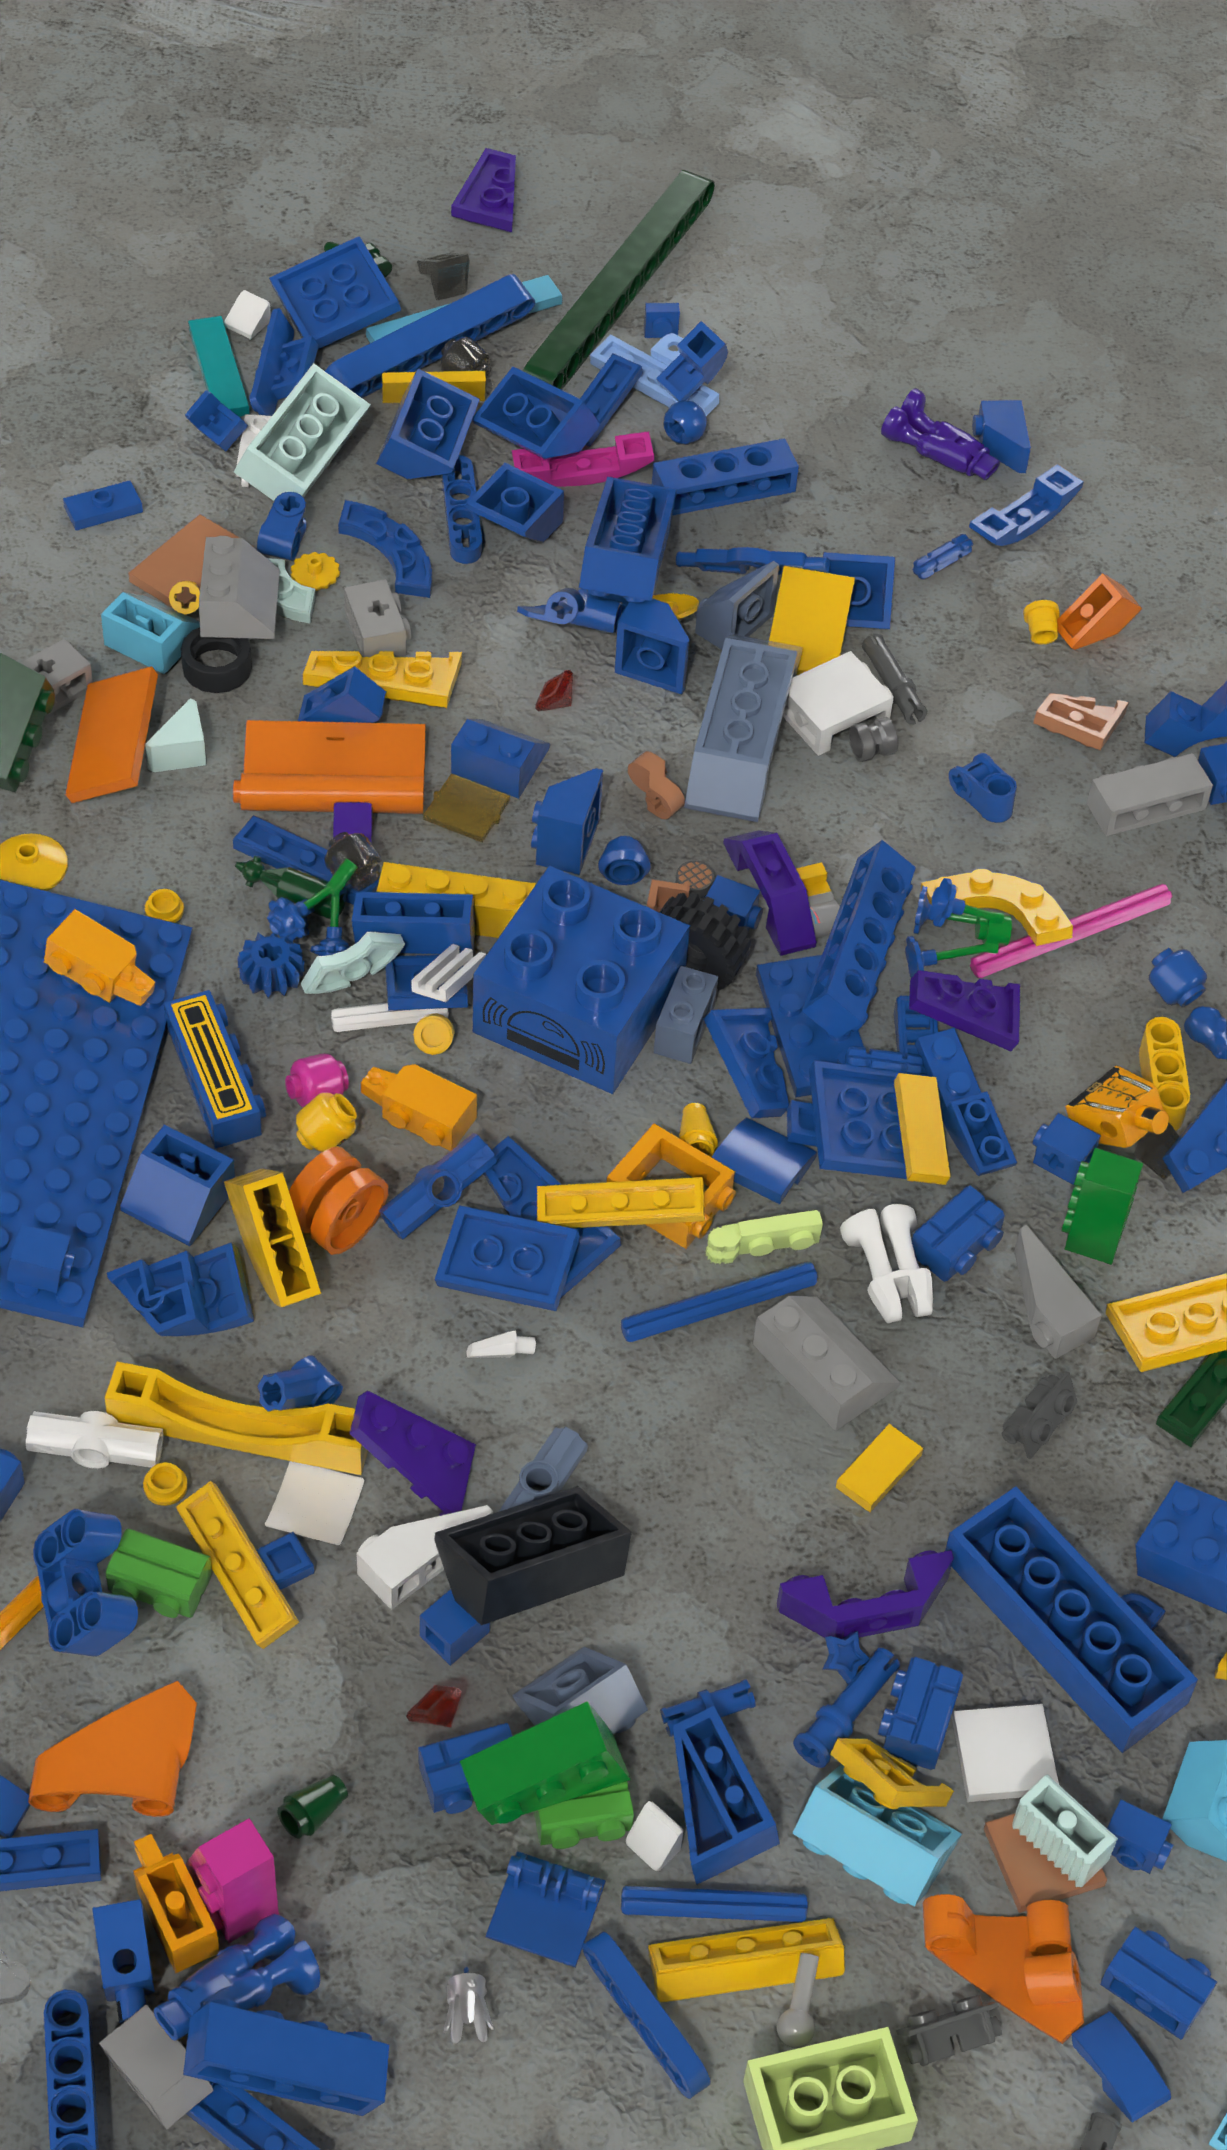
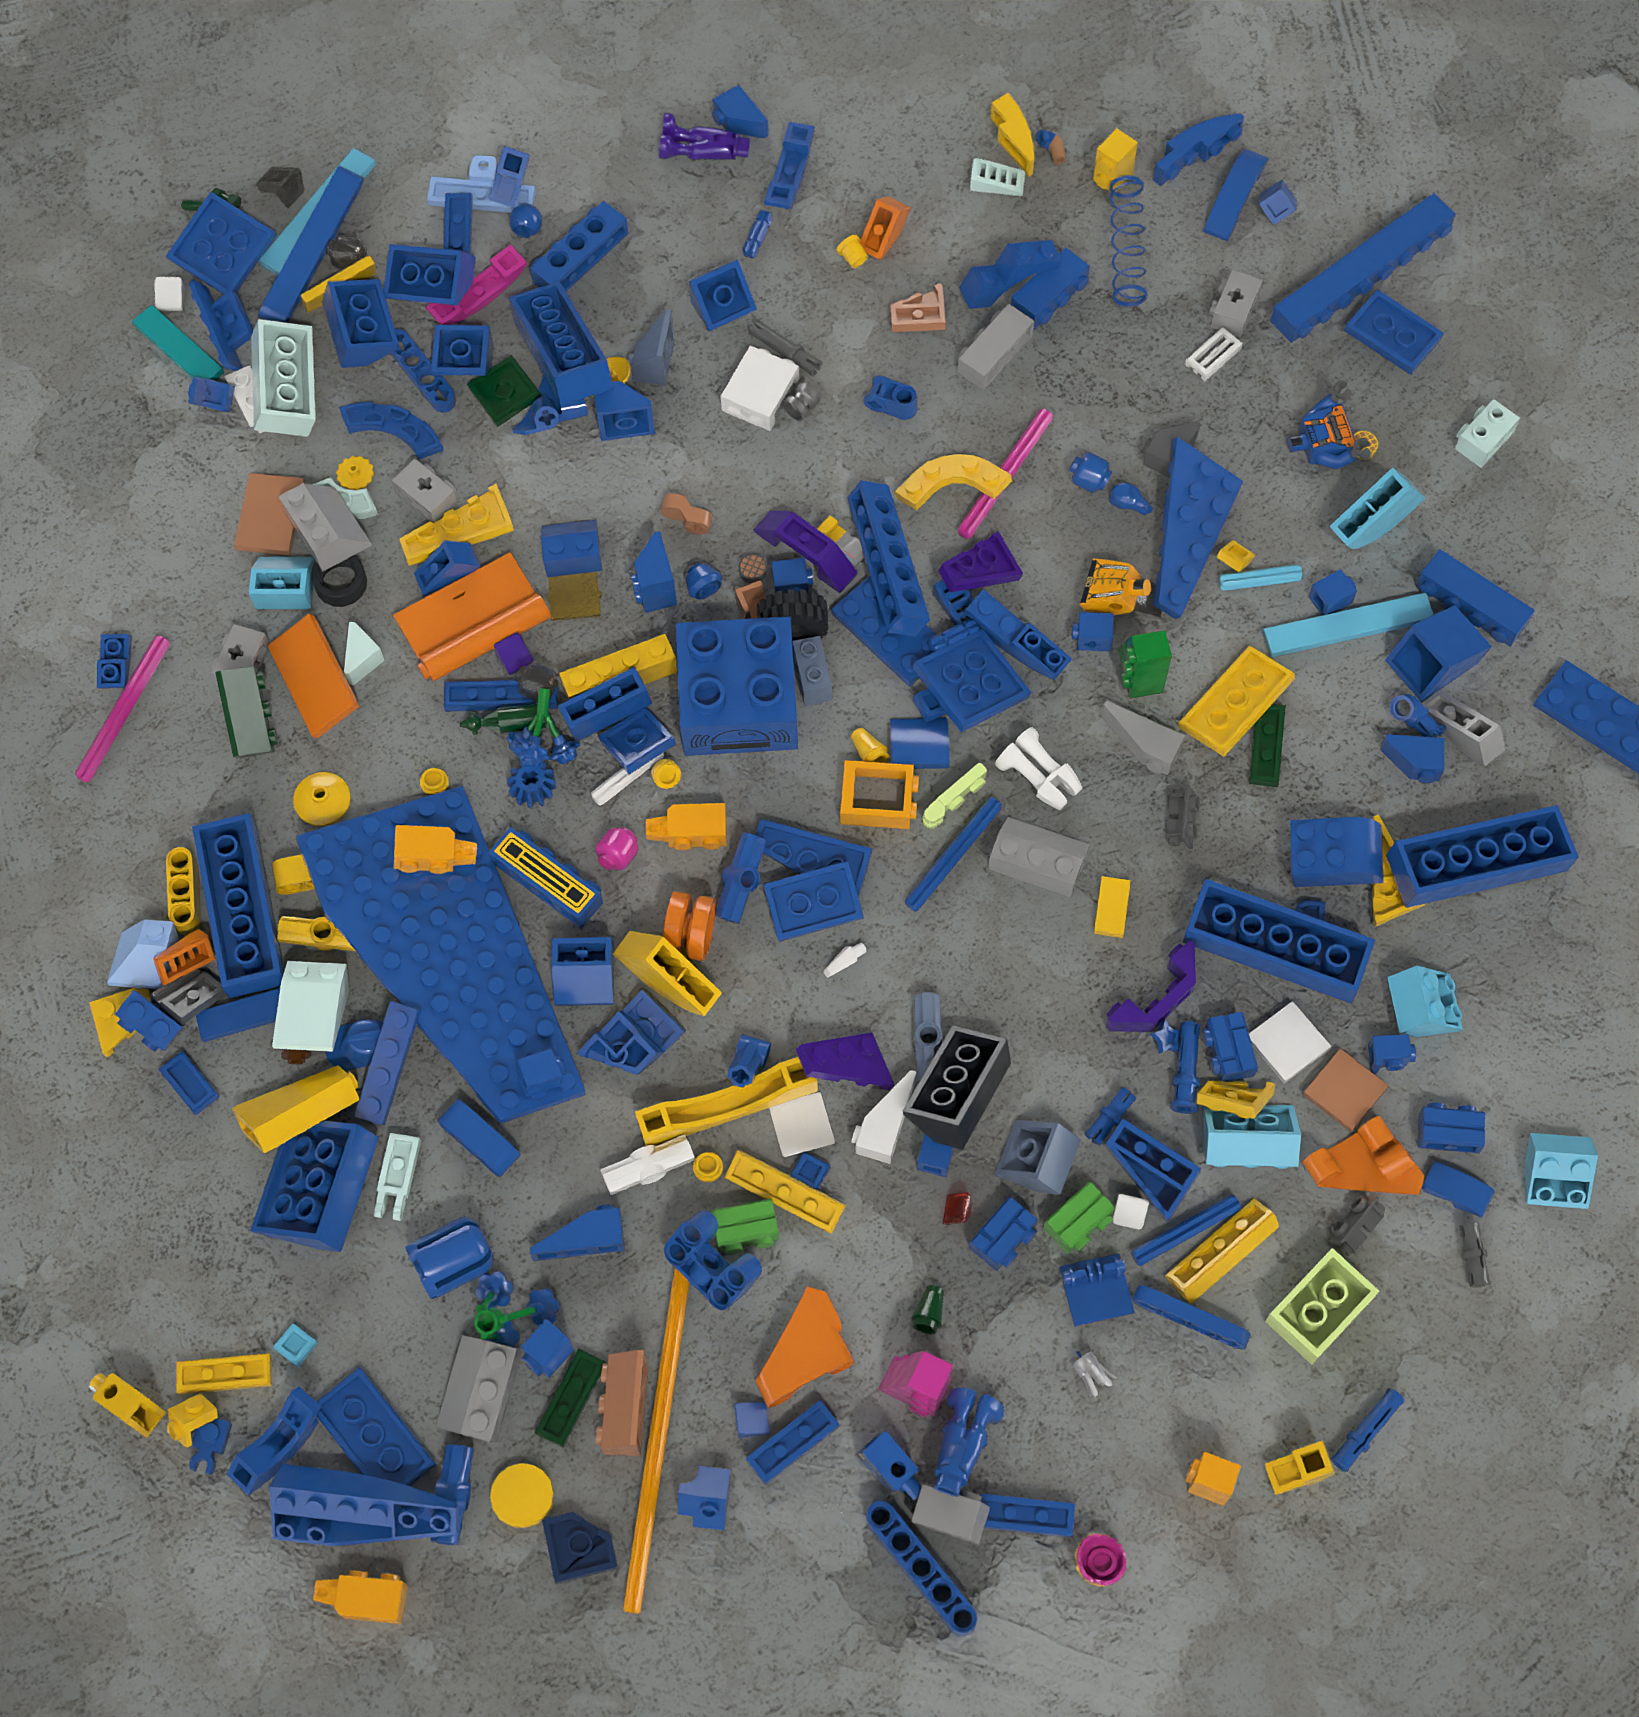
camera: 25 degrees left, 15 degrees up
(103, 505) = (177, 501): blue plate -> none
(174, 1906) = (895, 1416): light orange hinge -> none
(178, 605) = (283, 546): yellow bush -> none
(284, 527) = (315, 454): blue piece -> none
(286, 2058) = (1022, 1467): blue brick -> none
(326, 1122) = (643, 874): yellow head -> none
(336, 970) = (589, 746): light aqua tile -> none
(442, 971) = (652, 711): white tile -> none
(488, 191) = (266, 99): dark purple wing -> none
(538, 569) = (504, 391): none -> dark green tile
(545, 1766) = (1054, 1214): green wedge -> none
(556, 692) = (576, 479): clear red slope -> none
(621, 280) = (406, 128): dark green beam -> none
(622, 1203) = (861, 827): yellow tile -> none
(661, 319) = (456, 145): blue plate -> none
(739, 559) = (649, 307): blue piece -> none
(741, 727) = (716, 438): sand blue slope -> none
(749, 1056) = (864, 675): blue wing -> none
(796, 2025) = (1274, 1273): light grey bar -> none
(812, 614) = (707, 336): yellow tile -> none
(921, 1129) = (1004, 669): yellow tile -> none
(958, 1234) = (1066, 726): blue brick -> none
(990, 927) = (929, 509): plant -> none
(1063, 1831) = (1355, 1074): light aqua brick -> none
(1165, 1066) = (1120, 534): yellow beam -> none

